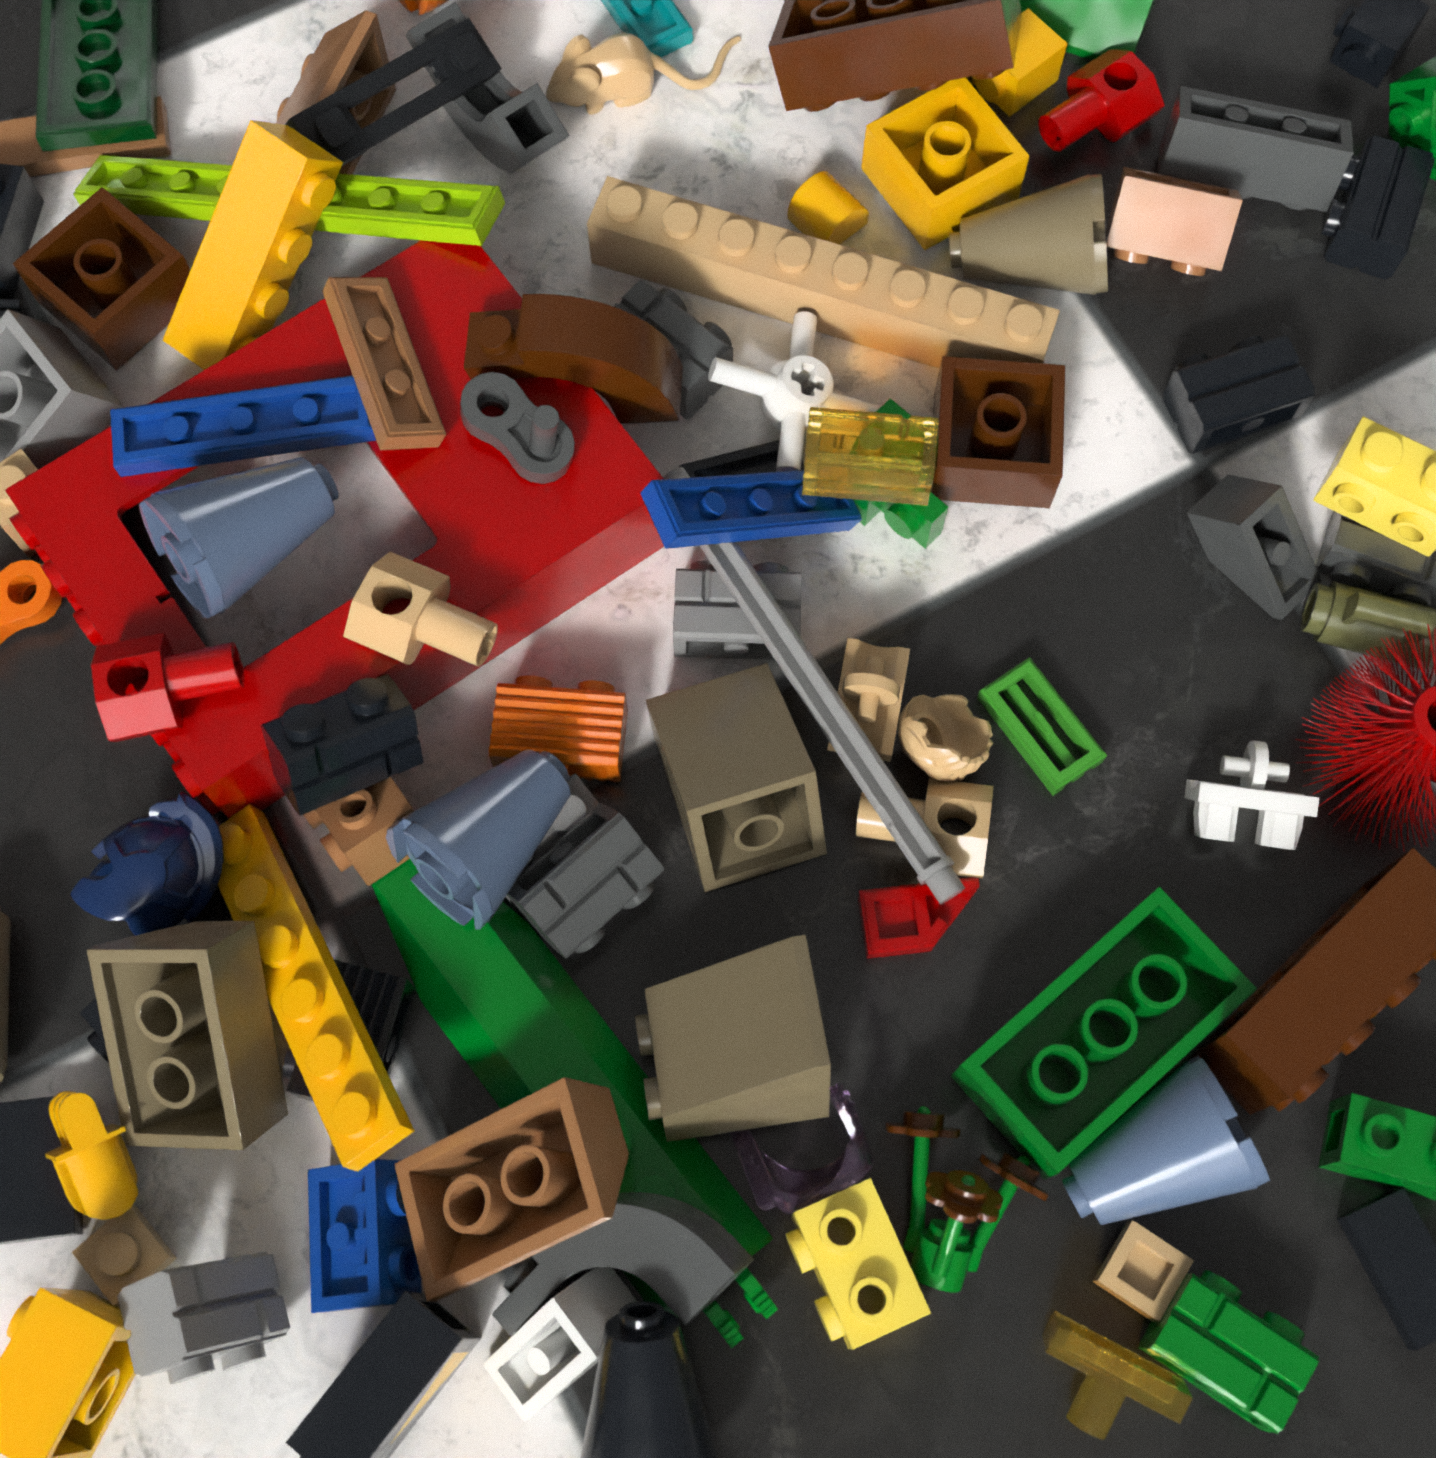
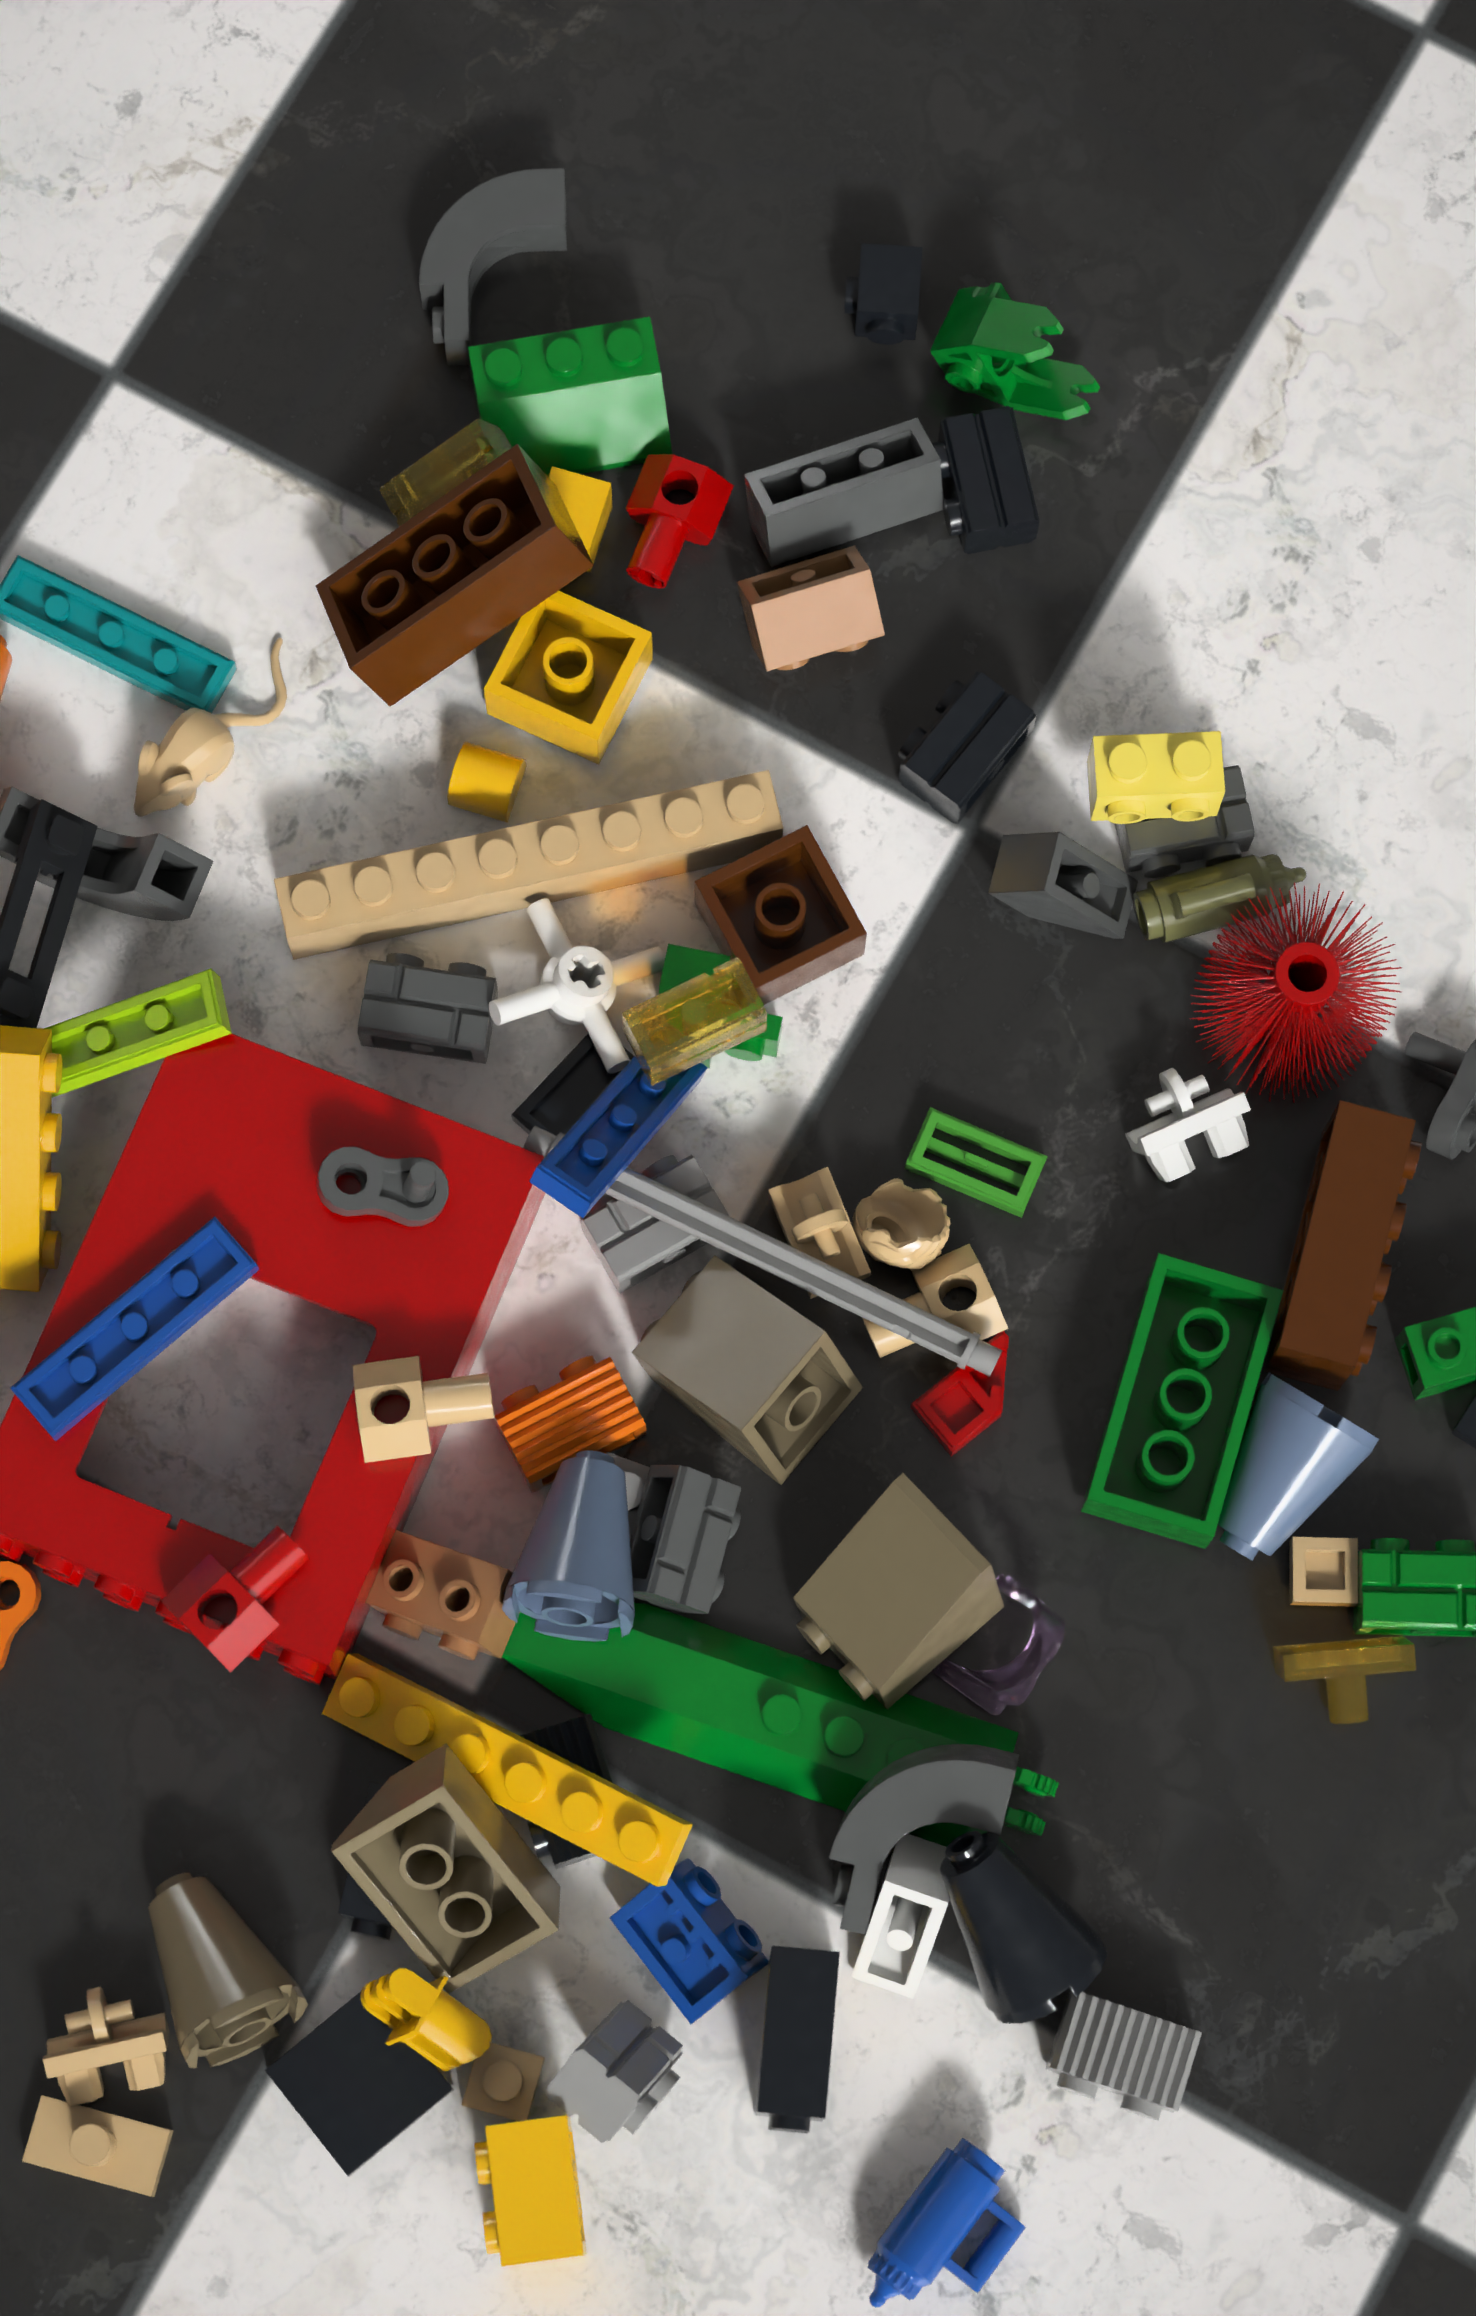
camera: 35 degrees left, 5 degrees up
(157, 868) = (314, 1756): dark blue helmet -> none
(237, 527) = (212, 1428): sand blue cone -> none
(342, 743) = (418, 1552): black brick -> none
(383, 363) = (223, 1197): medium nougat tile -> none
(513, 1184) = (796, 1818): medium nougat slope -> none
(584, 345) = (400, 1069): reddish brown arch -> none
(857, 1265) = (1099, 1710): light yellow brick -> none
(944, 1250) = (1159, 1653): plant -> none
(1039, 240) = (703, 702): dark tan cone -> none

